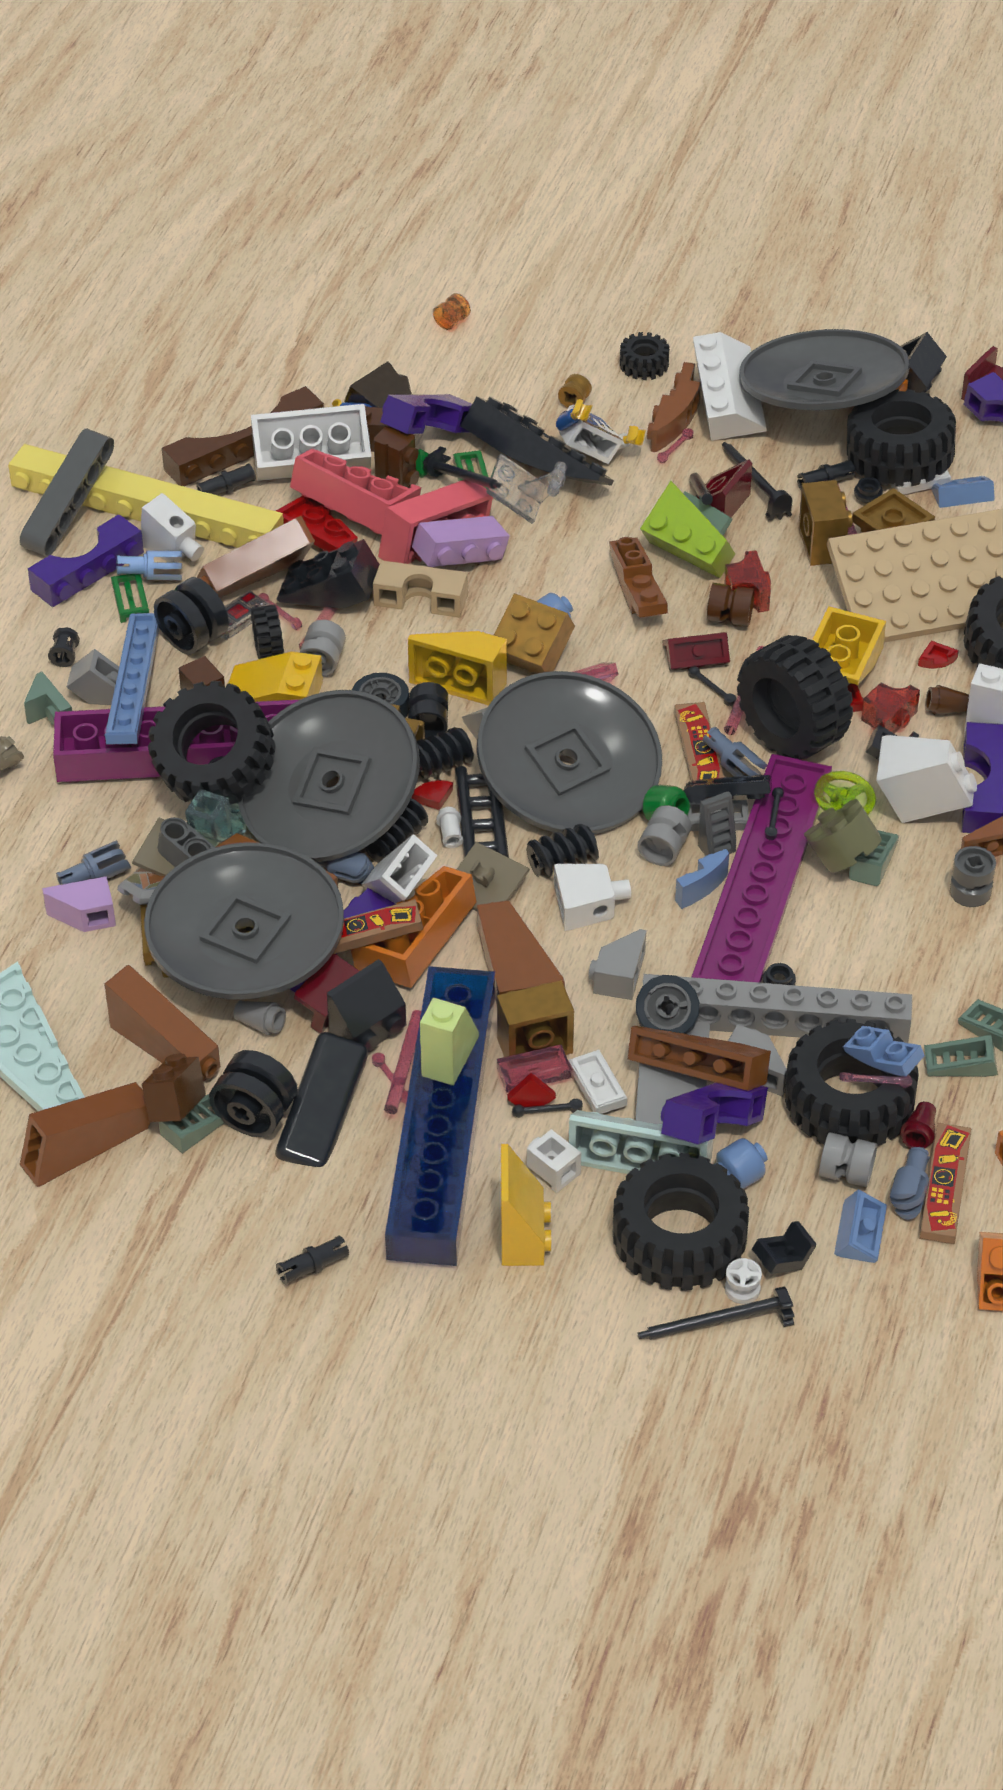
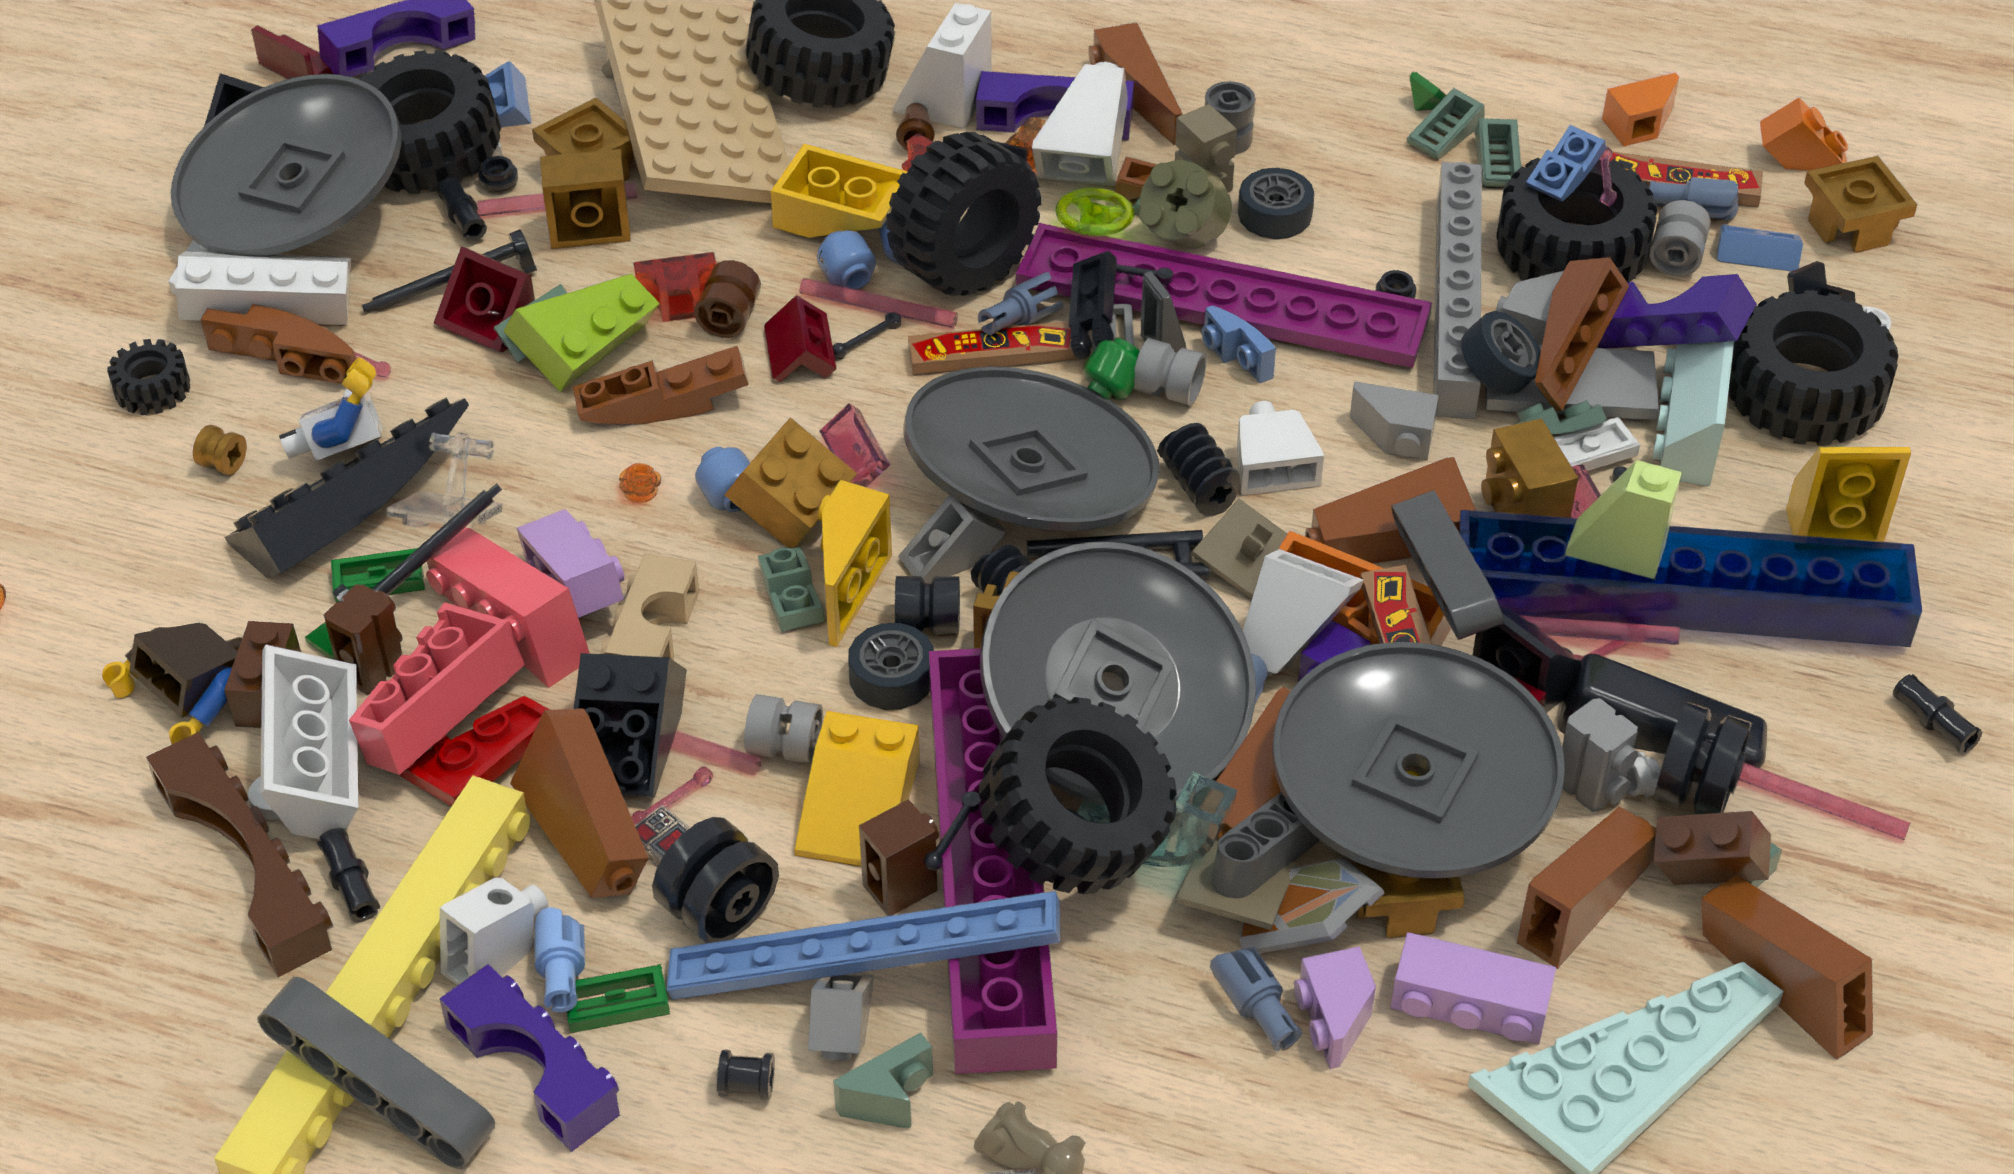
camera: 90 degrees left, 0 degrees up
(85, 969) = (1473, 988): none -> lavender brick
(240, 1182) = (1825, 801): none -> clear pink bar
(266, 1030) = (1598, 755): none -> light grey brick
(267, 631) = (774, 785): black tyre -> none
(405, 940) = (1447, 565): none -> dark grey beam
(415, 412) = (300, 591): dark purple arch -> none
(554, 580) = (639, 482): none -> clear orange plate
(554, 1160) = (1725, 492): white brick -> none
(614, 1059) = (1578, 417): none -> sand green slope
(701, 488) = (487, 314): black bar -> none
(780, 1302) = (1893, 303): black piece -> none
(877, 909) = (1275, 203): none -> black wheel
(895, 823) = (1132, 177): none -> dark orange slope
(905, 1289) = (1858, 198): none -> pearl gold panel
(912, 853) = (1208, 142): none -> dark tan piece
(937, 656) = (822, 135): red tile -> none

